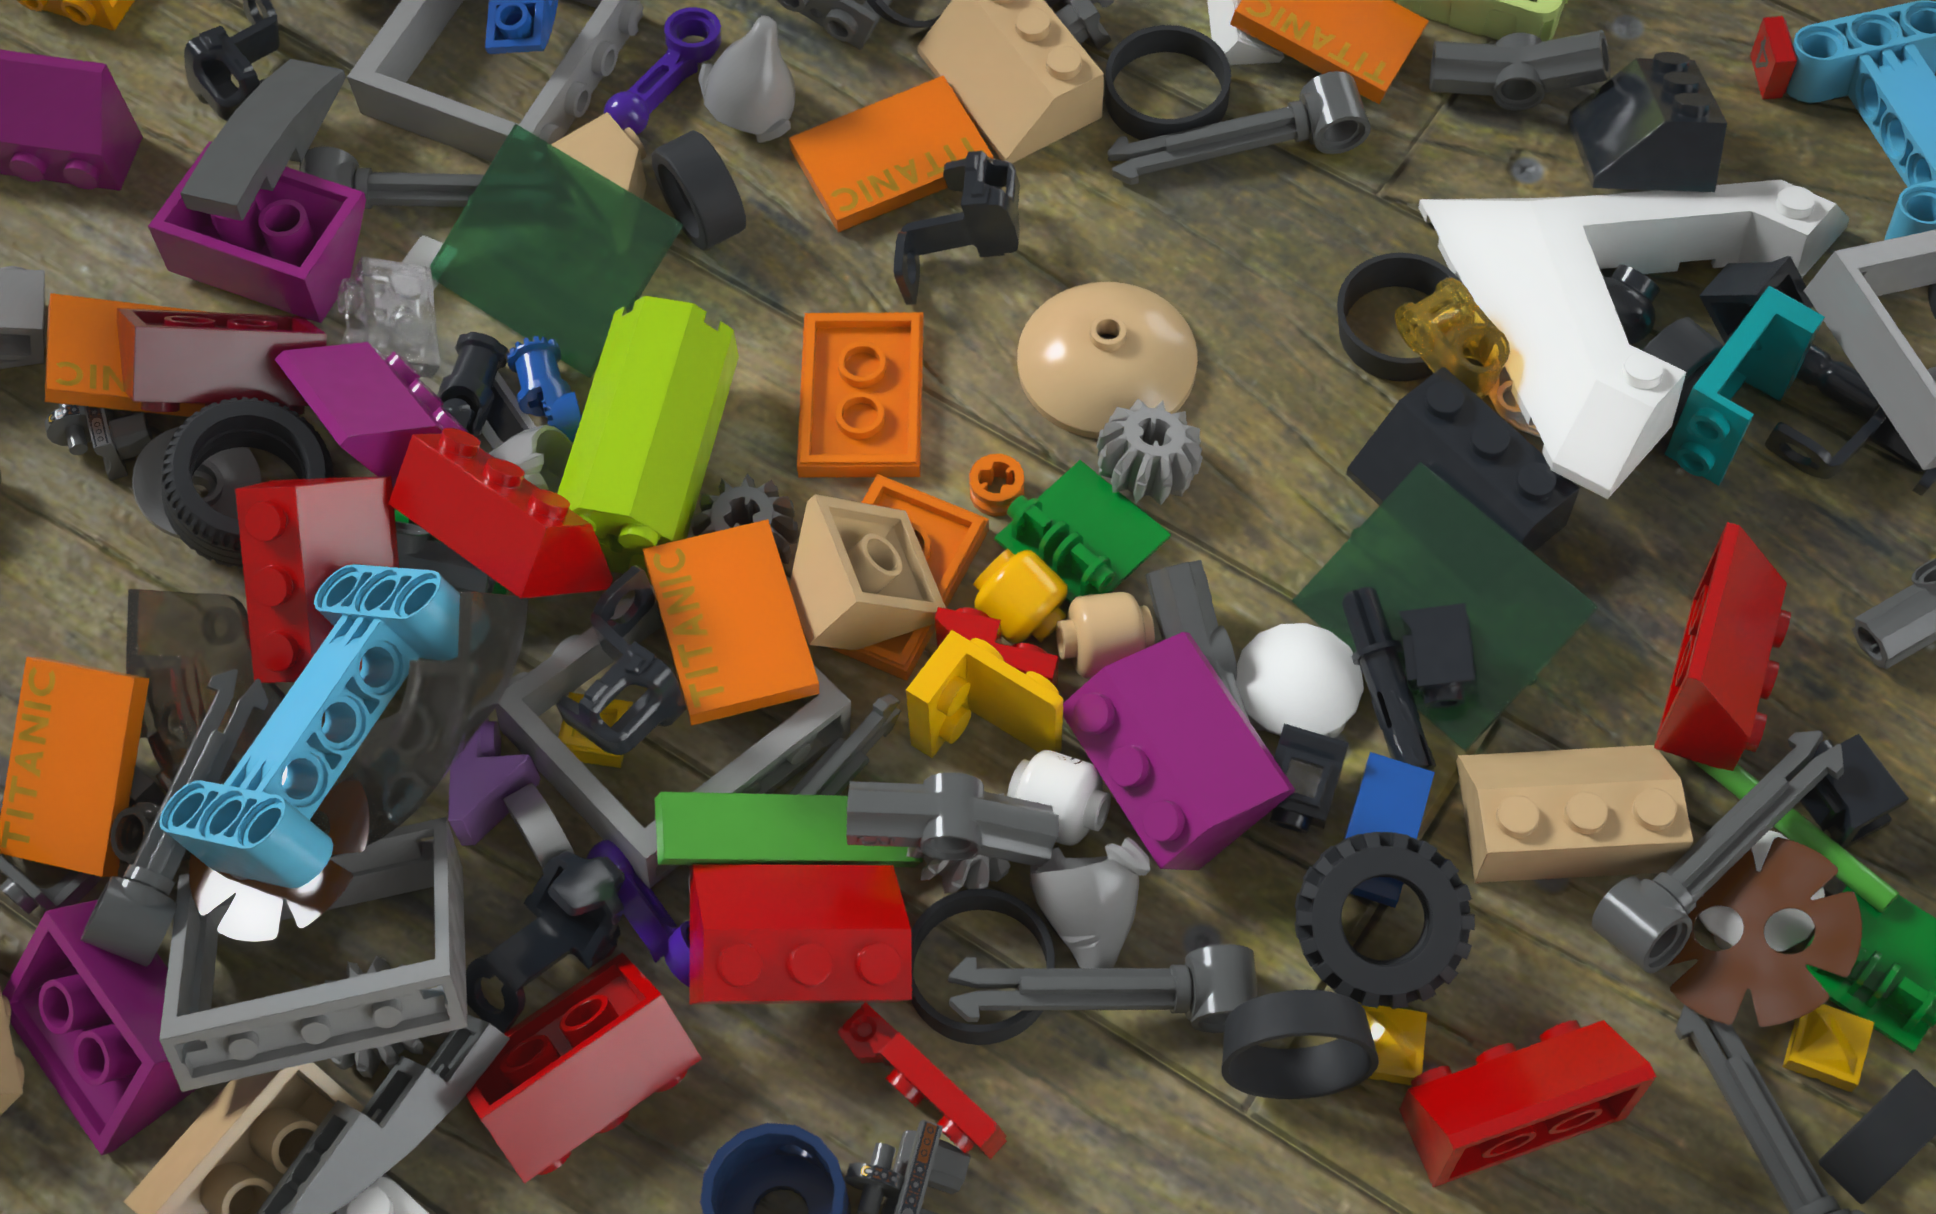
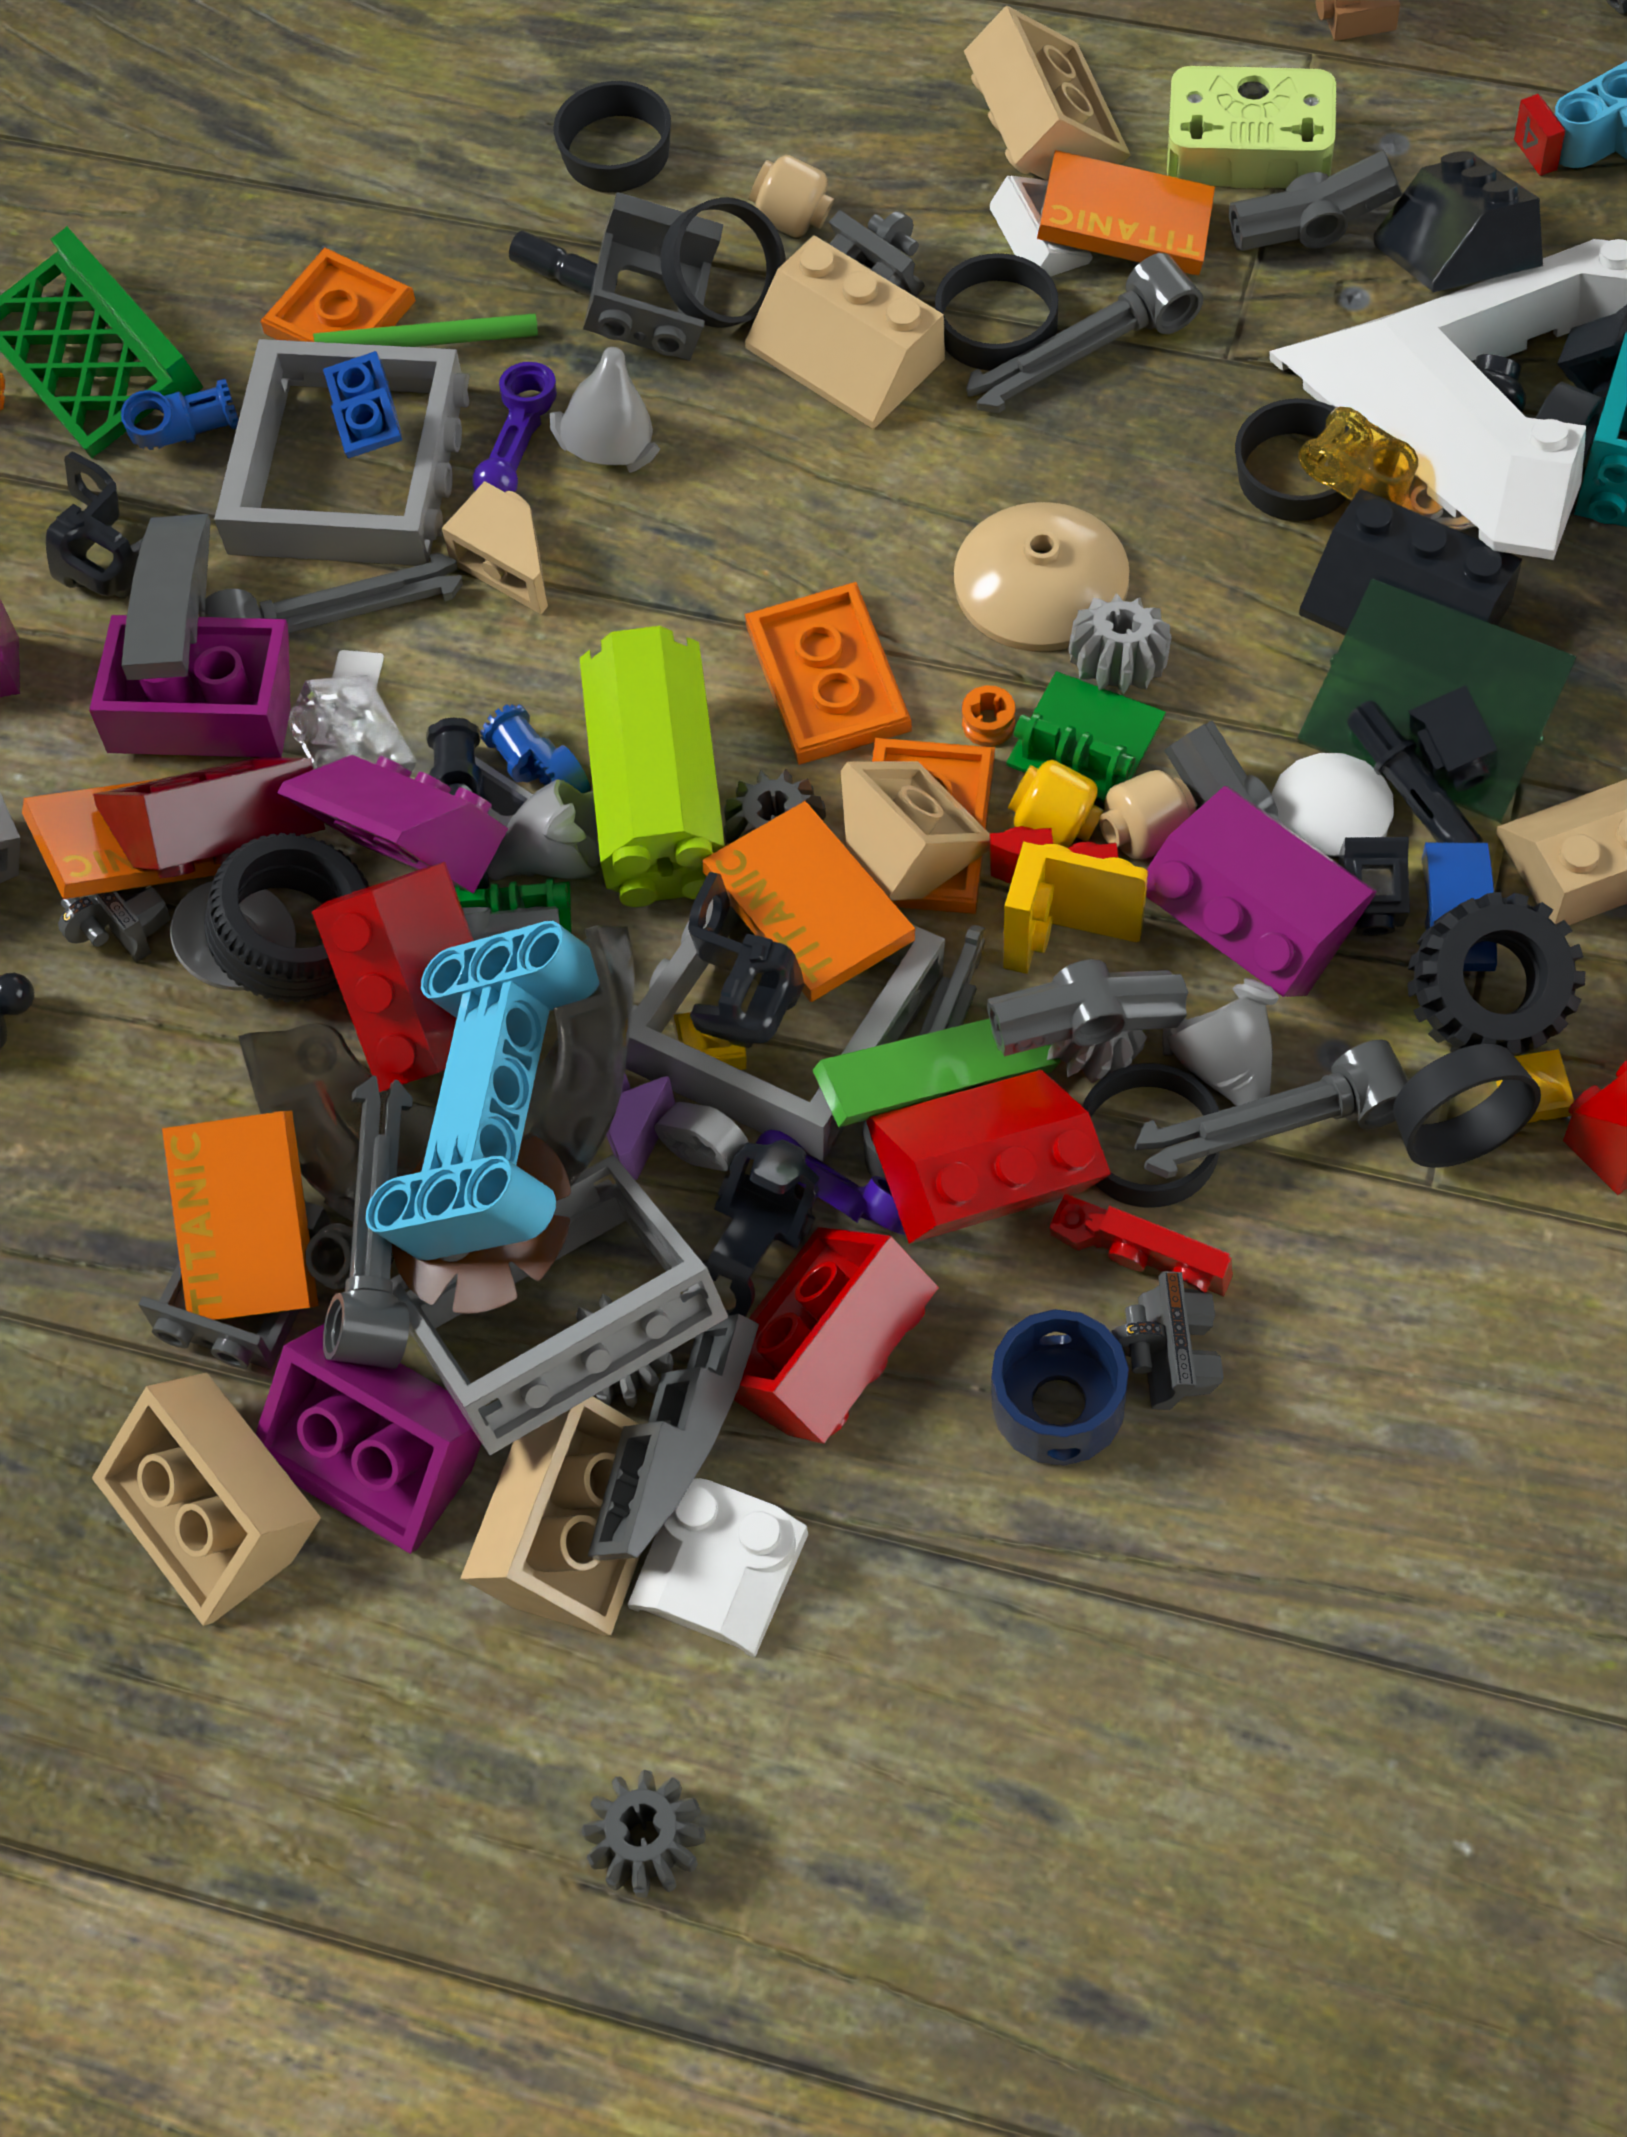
camera: 15 degrees left, 0 degrees up
(498, 517) = (564, 864): red slope -> none
(553, 248) = (484, 621): clear green piece -> none
(699, 189) = (603, 528): black tyre -> none
(886, 152) = (762, 447): orange tile -> none
(986, 222) = (886, 486): black piece -> none
(1066, 785) = (1167, 949): white head -> none

